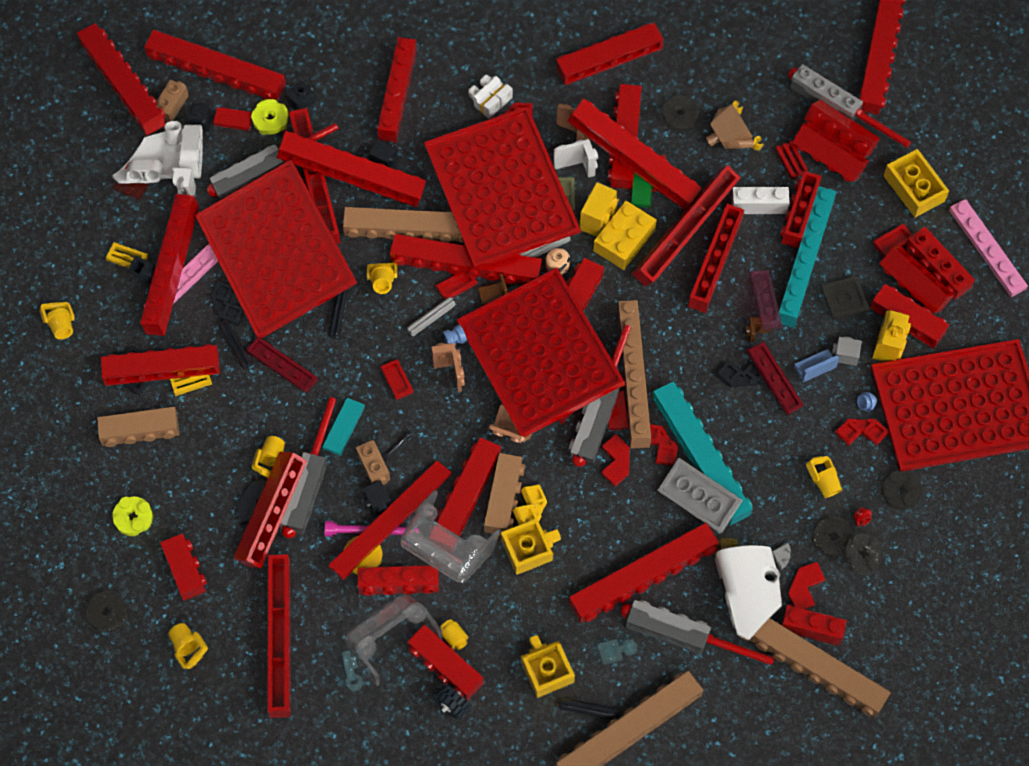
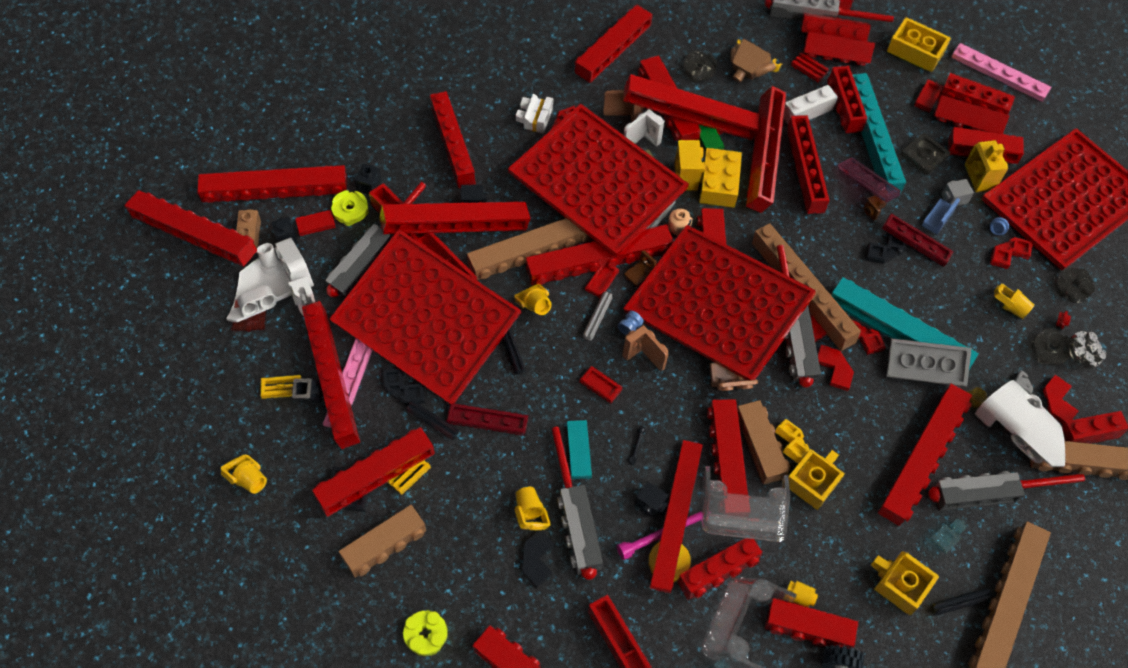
camera: 30 degrees left, 5 degrees down
(270, 509) = (562, 560): red brick -> none
(373, 463) = (628, 470): medium nougat brick -> none

